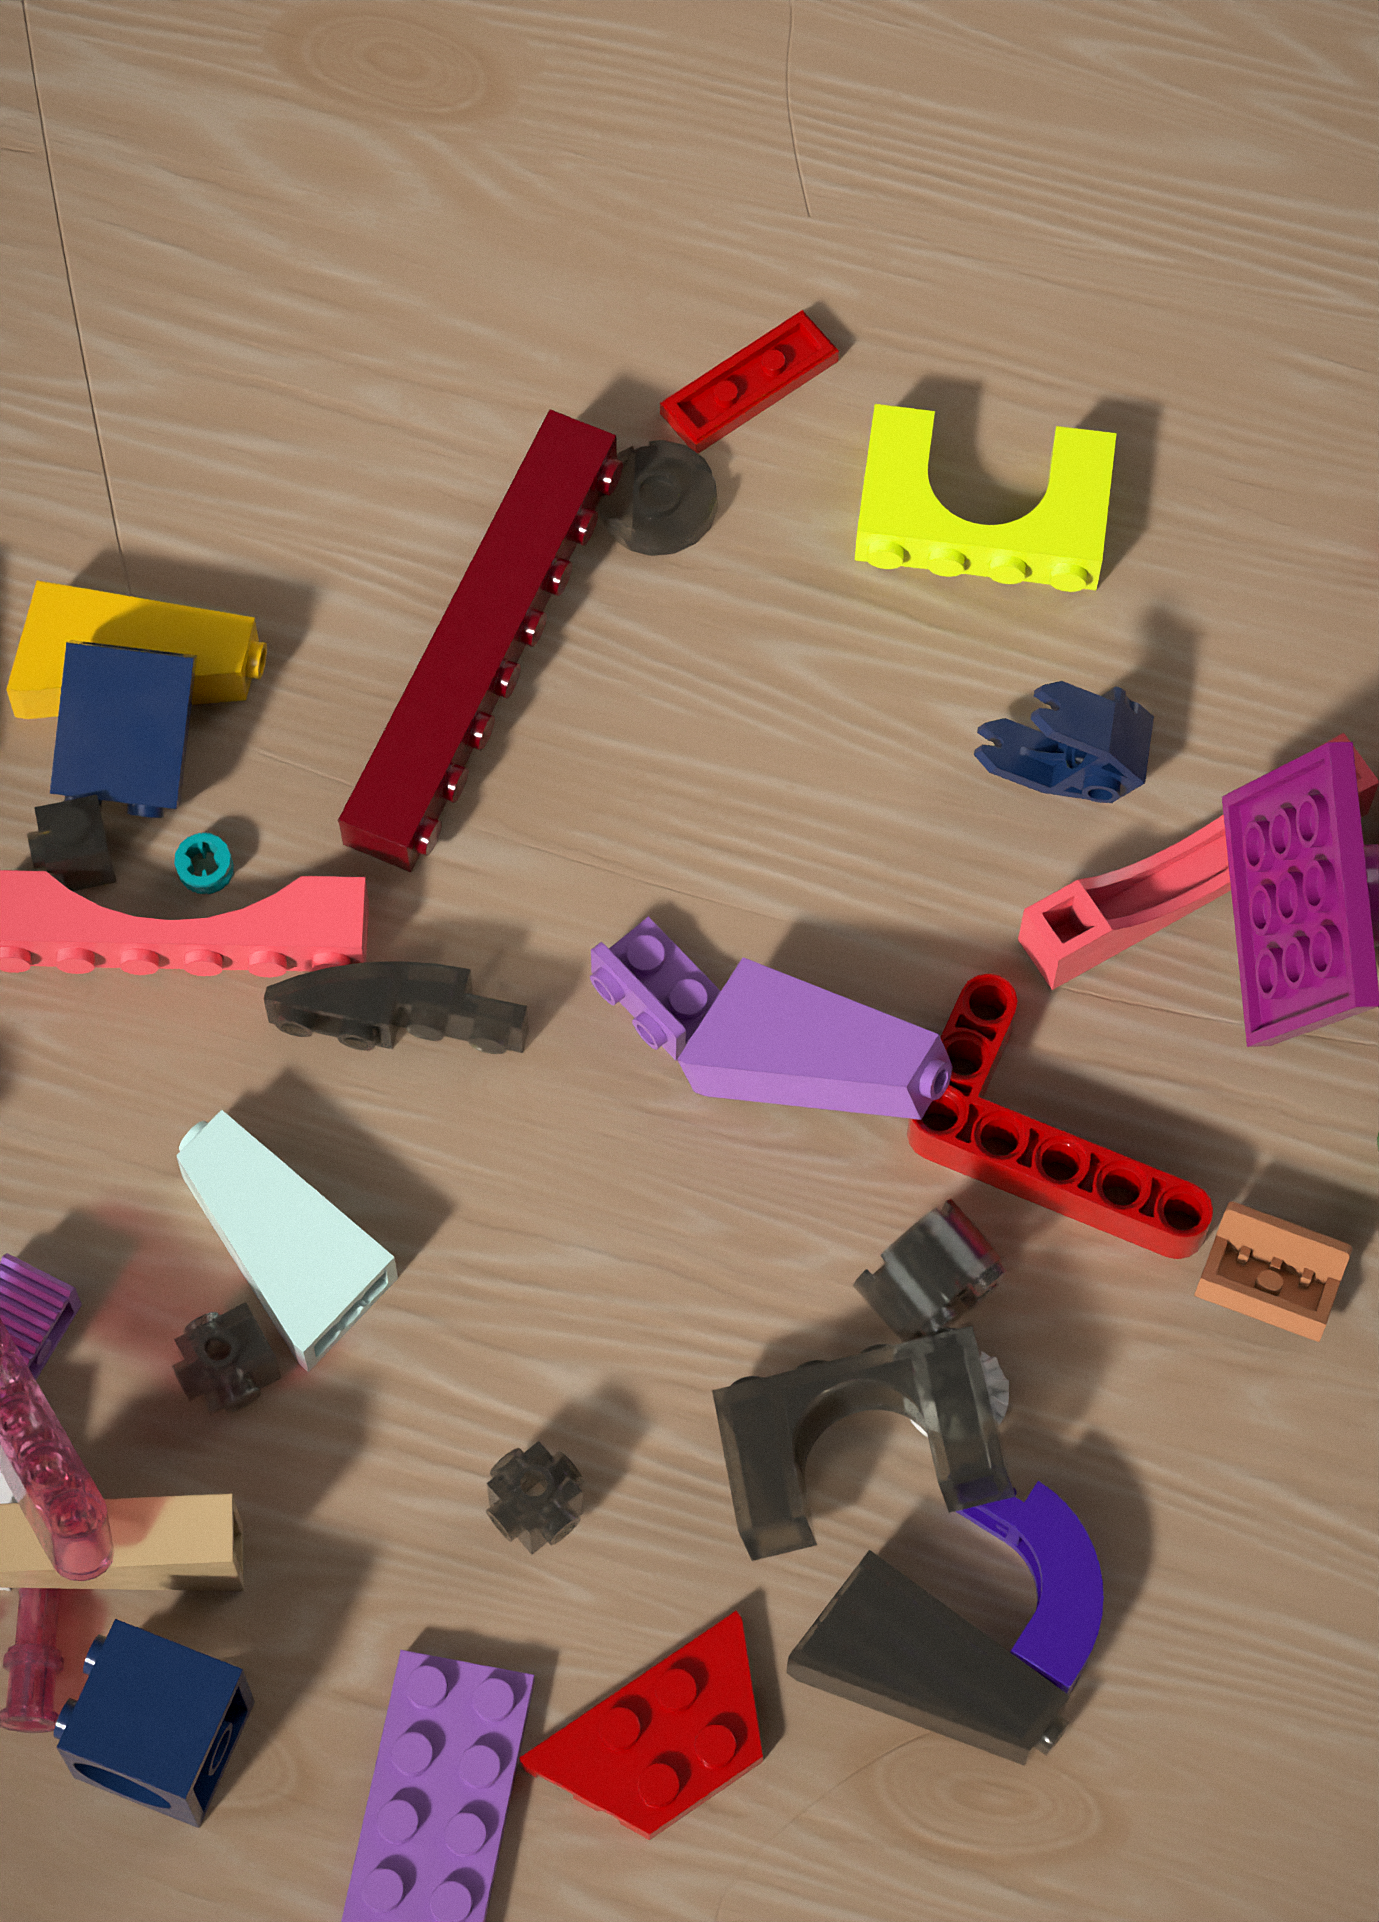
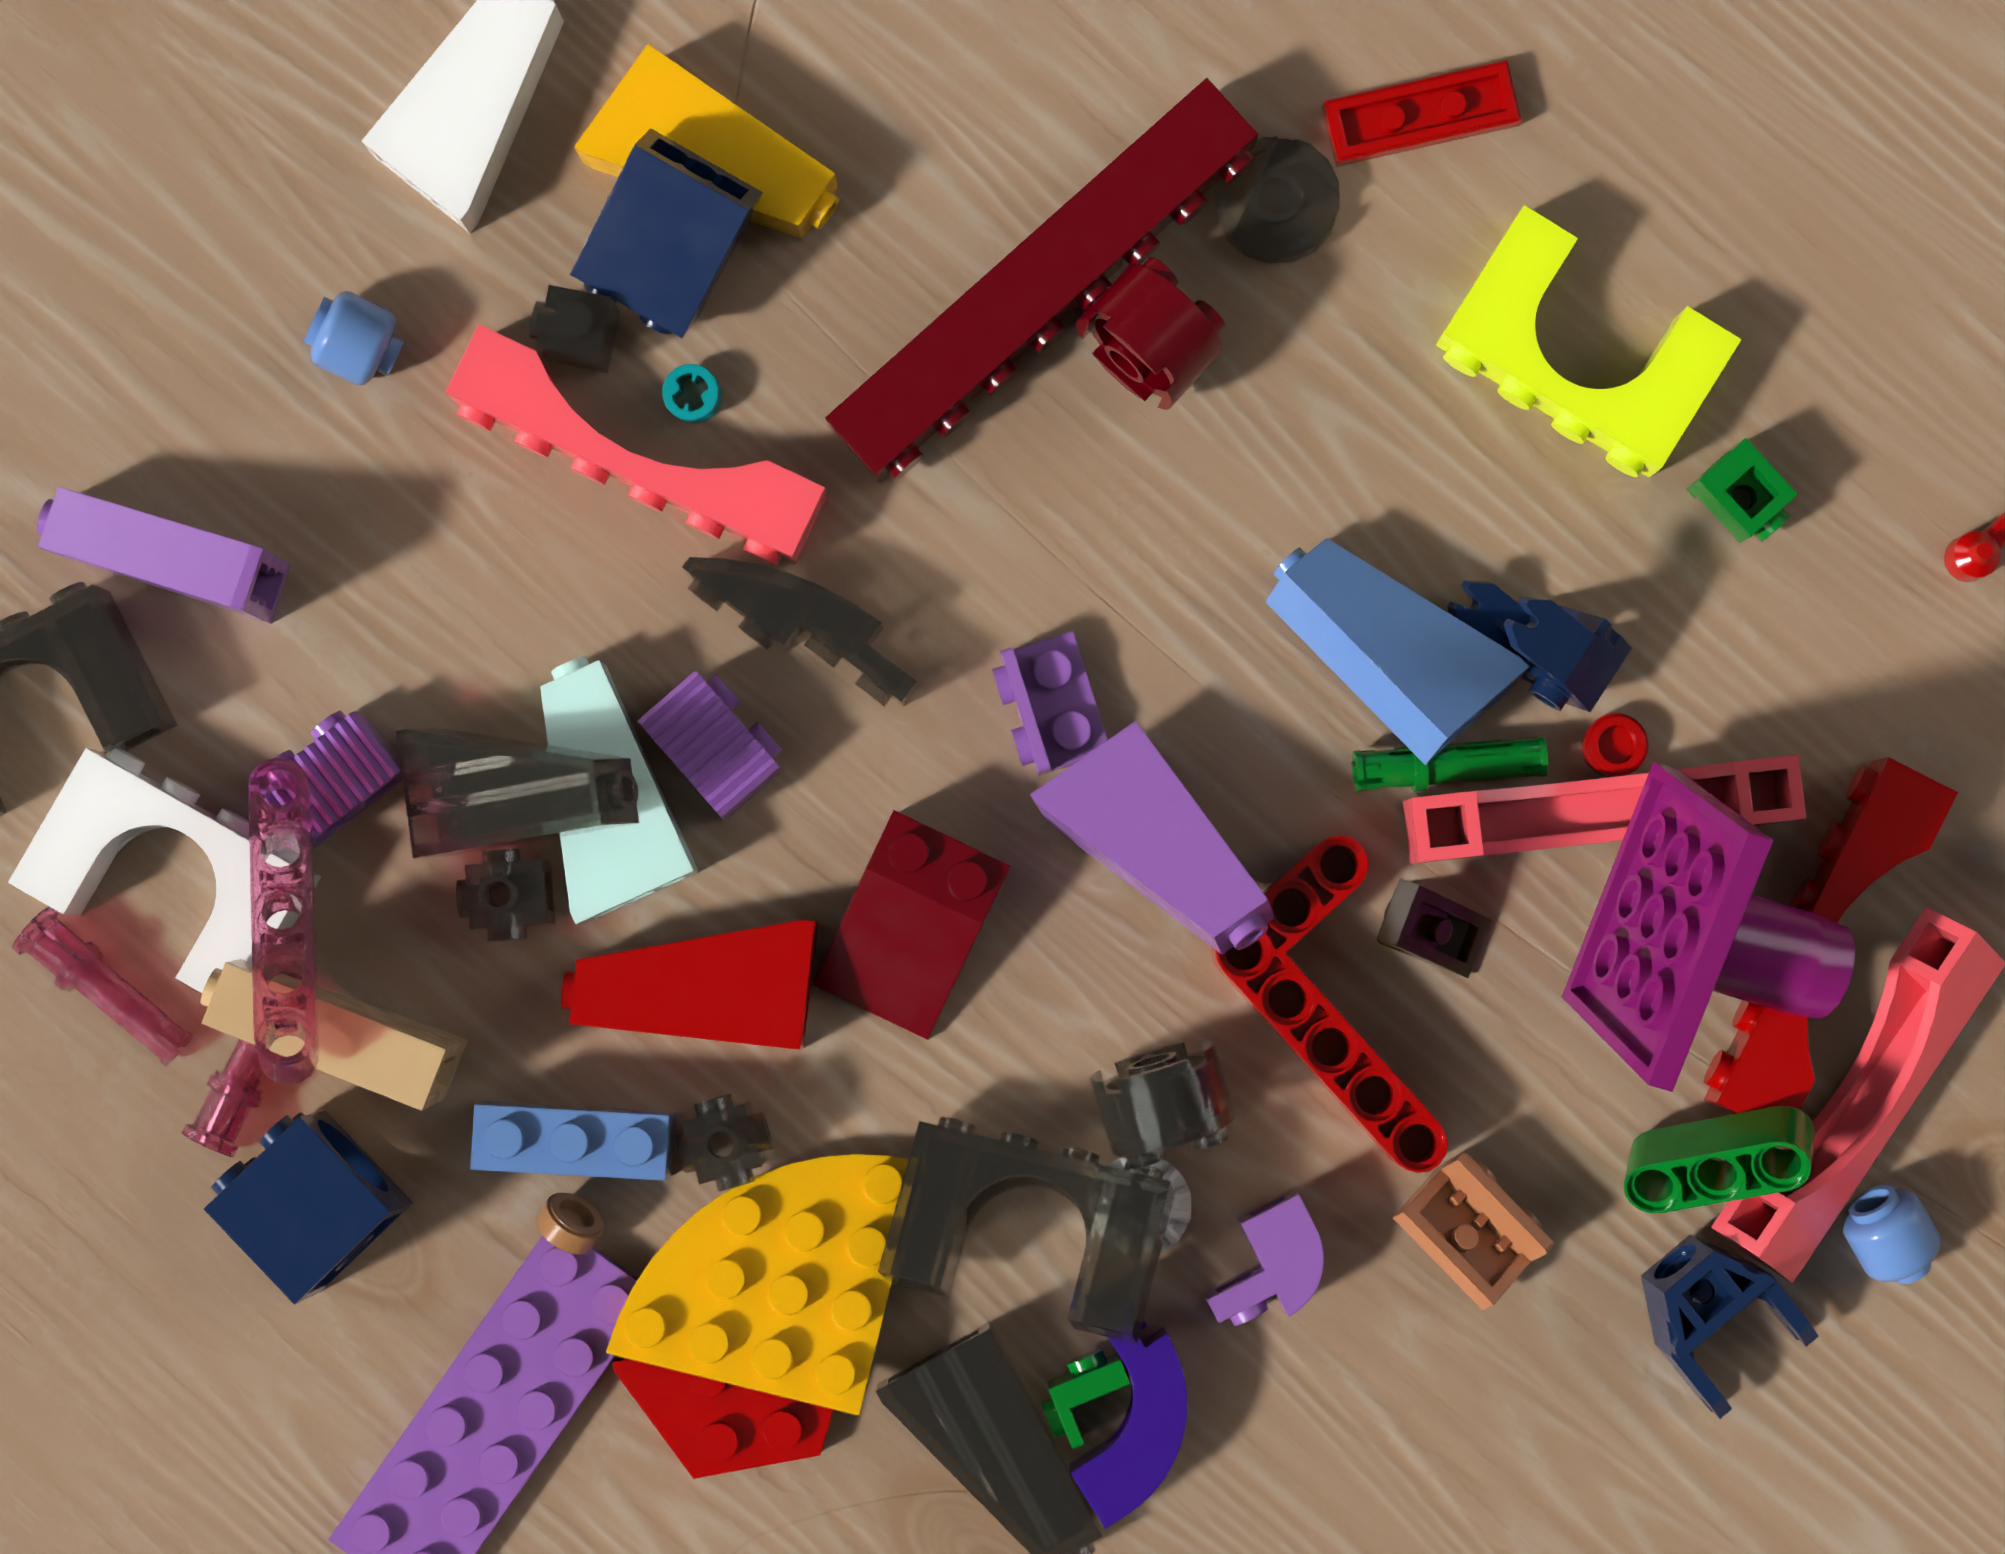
camera: 25 degrees right, 20 degrees up
(188, 1256) = (500, 792): none -> clear smoke slope
(360, 1148) = (712, 744): none -> medium lavender brick
(419, 1640) = (570, 1223): none -> medium nougat tile
(425, 1541) = (573, 1141): none -> medium blue arch
(450, 1369) = (714, 987): none -> red slope
(601, 634) = (1152, 333): none -> dark red brick
(620, 1228) = (911, 924): none -> dark red slope
(644, 1608) = (774, 1284): none -> yellow plate
(942, 803) = (1393, 647): none -> medium blue slope
(985, 1566) = (1088, 1378): none -> green bracket
(1015, 894) = (1454, 764): none -> green pin
(1097, 1029) = (1432, 928): none -> dark brown slope
(1115, 1373) = (1288, 1259): none -> medium lavender brick
(1180, 811) = (1614, 745): none -> red tile
(1184, 558) = (1745, 469): none -> green brick

